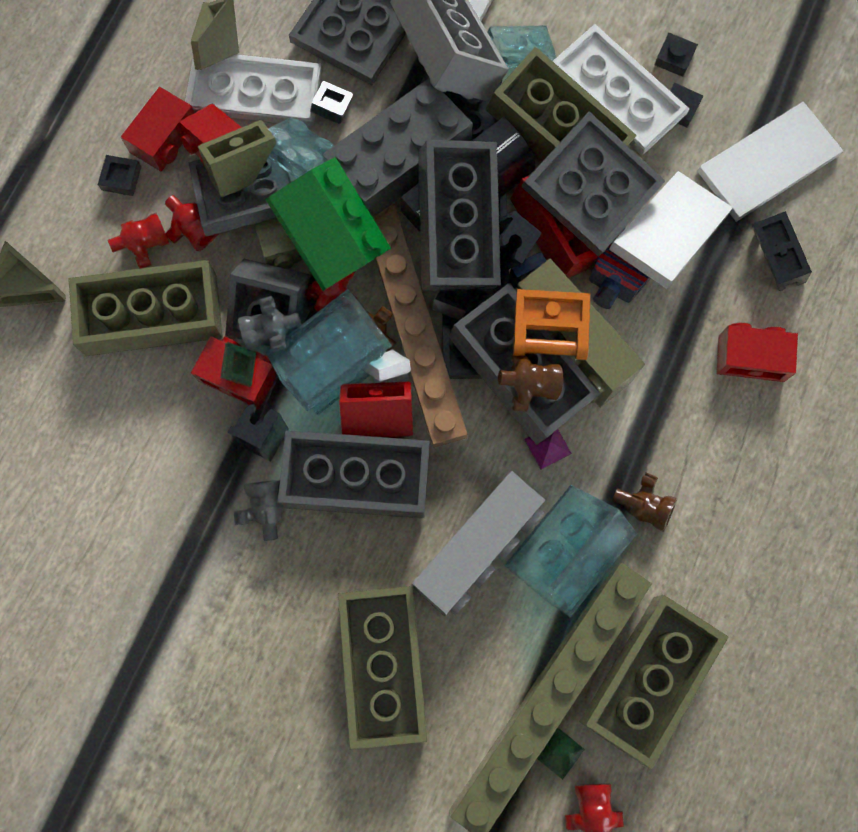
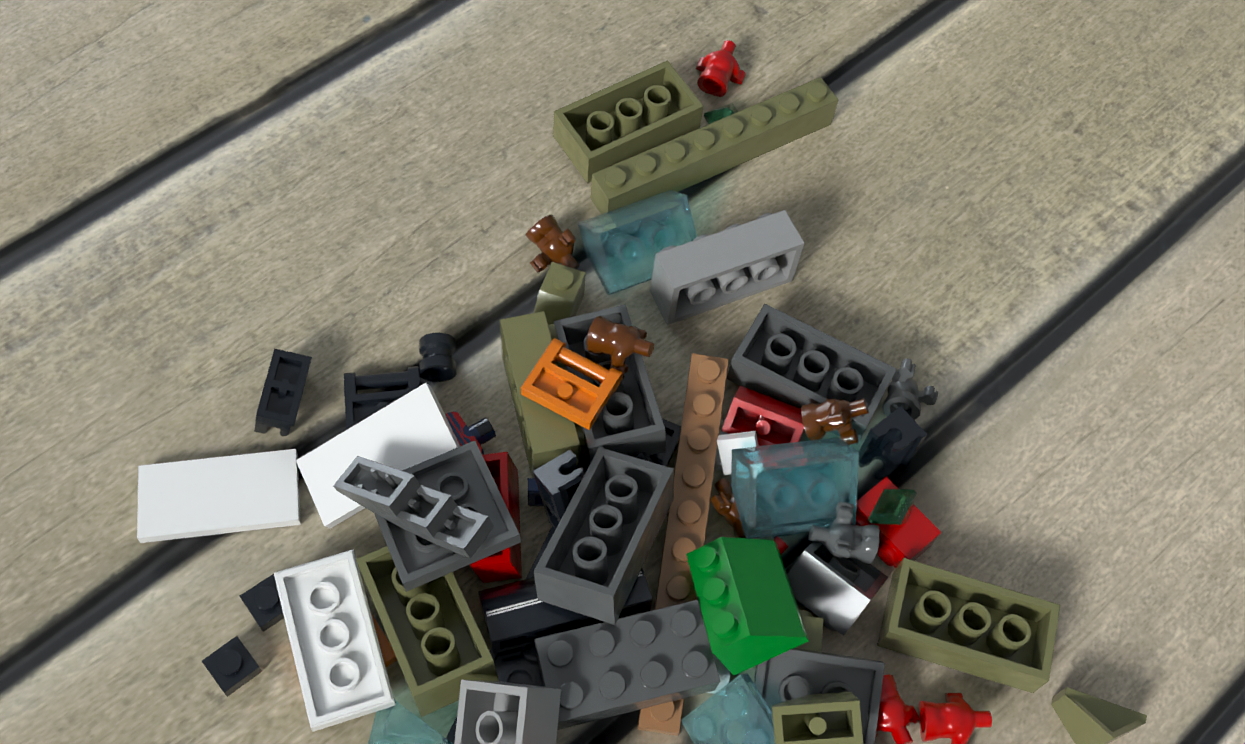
camera: 160 degrees left, 15 degrees down
(319, 416) = (832, 416): none -> reddish brown piece
(382, 668) = (848, 222): olive brick -> none
(609, 441) = (560, 292): none -> olive slope
(617, 167) = (414, 507): none -> dark grey slope
(680, 344) = (437, 357): none -> black wheel
(697, 277) = (364, 405): none -> black plate
(757, 352) = (371, 317): red brick -> none

